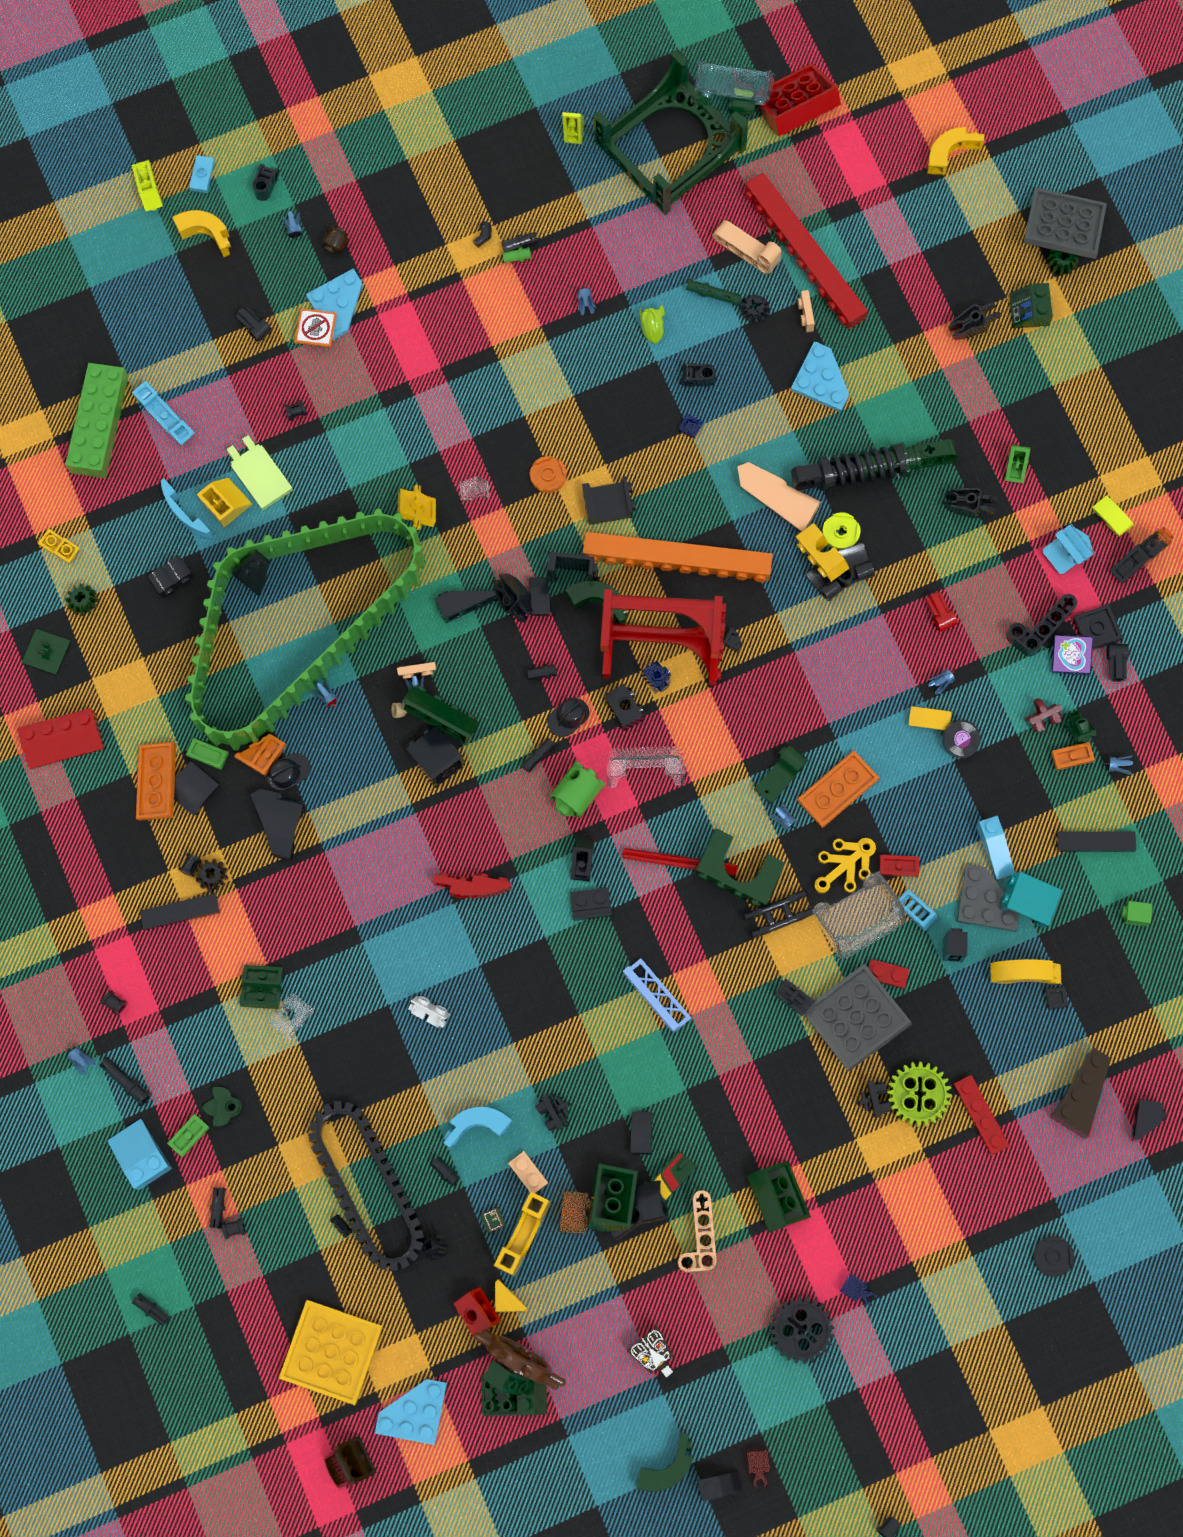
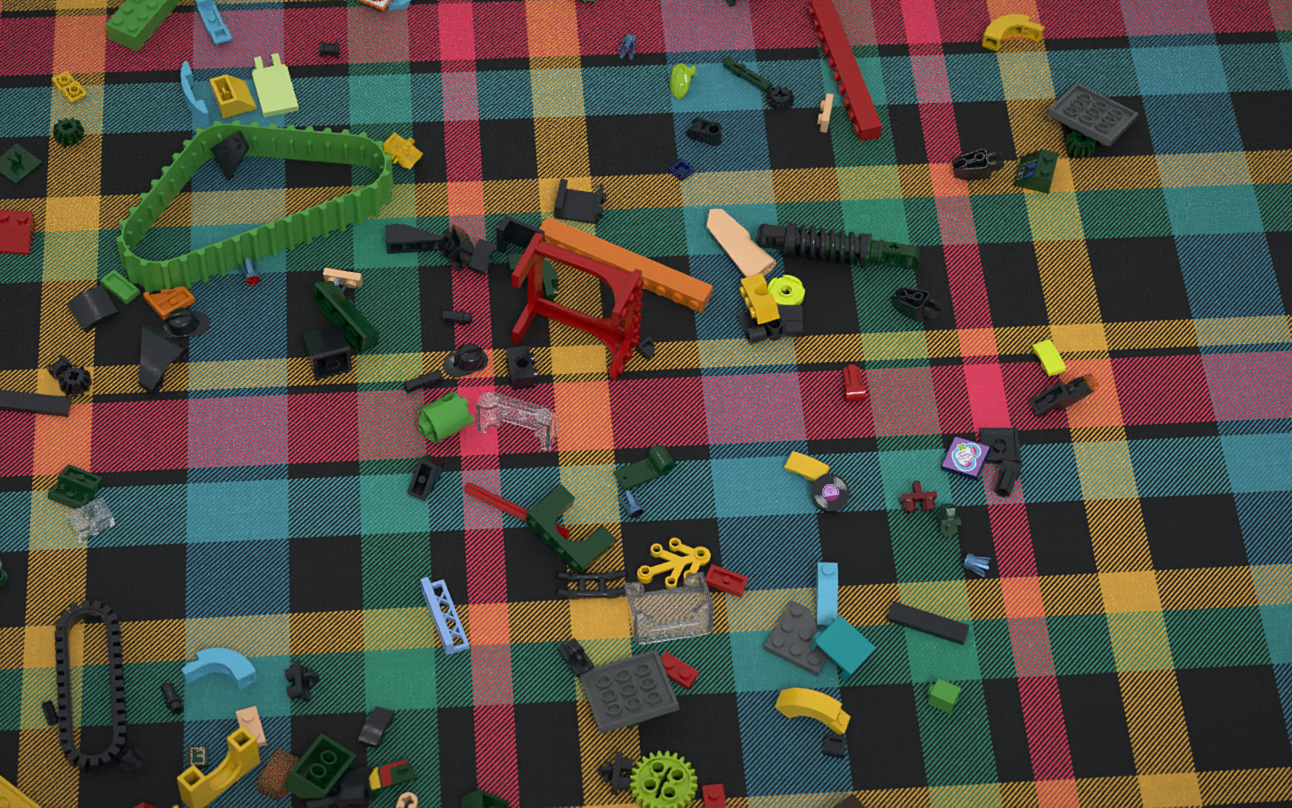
camera: 10 degrees right, 20 degrees down
(156, 781) = (62, 291): orange tile -> none
(170, 577) = (156, 138): black brick -> none
(397, 712) = (310, 307): tan hinge -> none
(422, 1006) = (216, 552): white hinge -> none
(474, 488) = (461, 155): clear bracket -> none
(480, 887) = (317, 470): red slope -> none
(548, 474) = (534, 167): orange tile -> none
(591, 904) = (416, 519): black plate -> none
(656, 677) = (562, 352): clear blue brick -> none
(747, 247) = (801, 58): light nougat beam -> none
(821, 379) = (818, 170): medium azure plate -> none
(838, 789) = (694, 500): orange tile -> none
(924, 925) = (733, 635): medium azure slope -> none
(945, 678) = (835, 438): flat silver piece -> none
(955, 945) = (751, 661): black brick -> none
(1017, 463) = (974, 287): bright green slope -> none
(1046, 623) = (971, 417): black beam -> none
(1069, 549) = (996, 369): medium azure piece -> none
(1072, 756) = (933, 542): orange plate -> none

